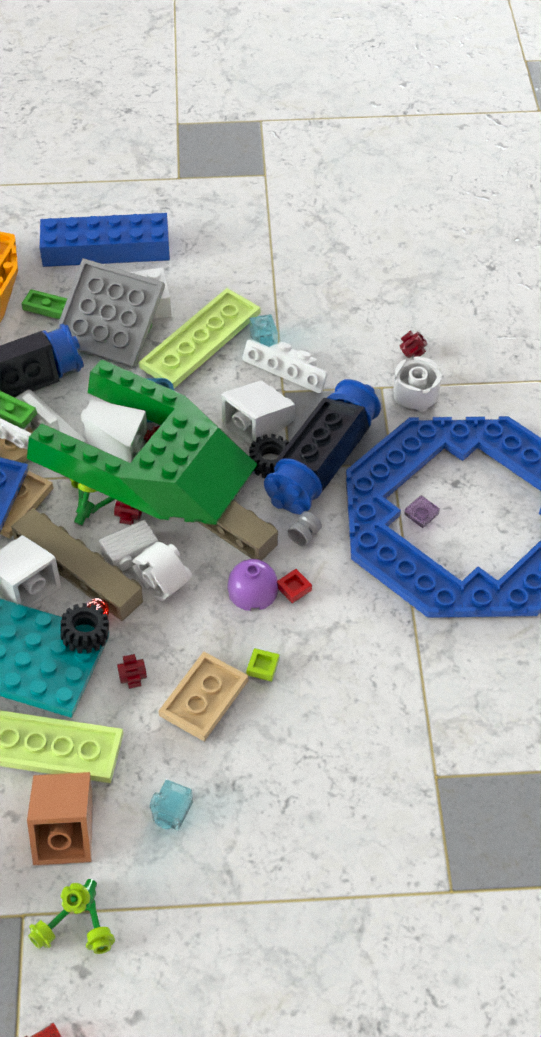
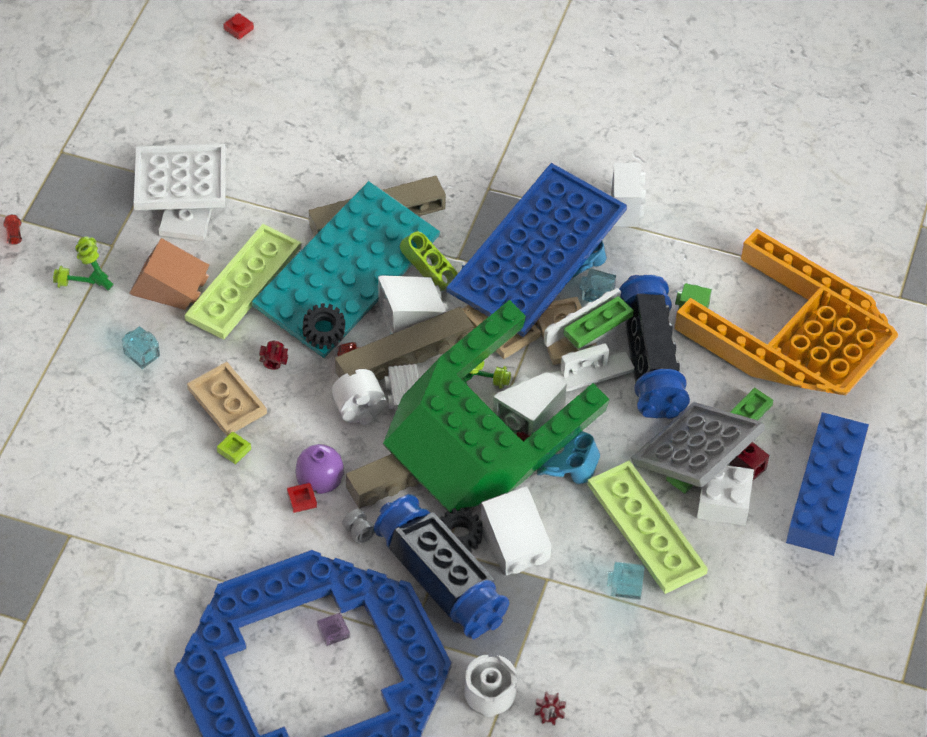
camera: 110 degrees right, 0 degrees up
(286, 363) = (580, 592): white bracket -> none

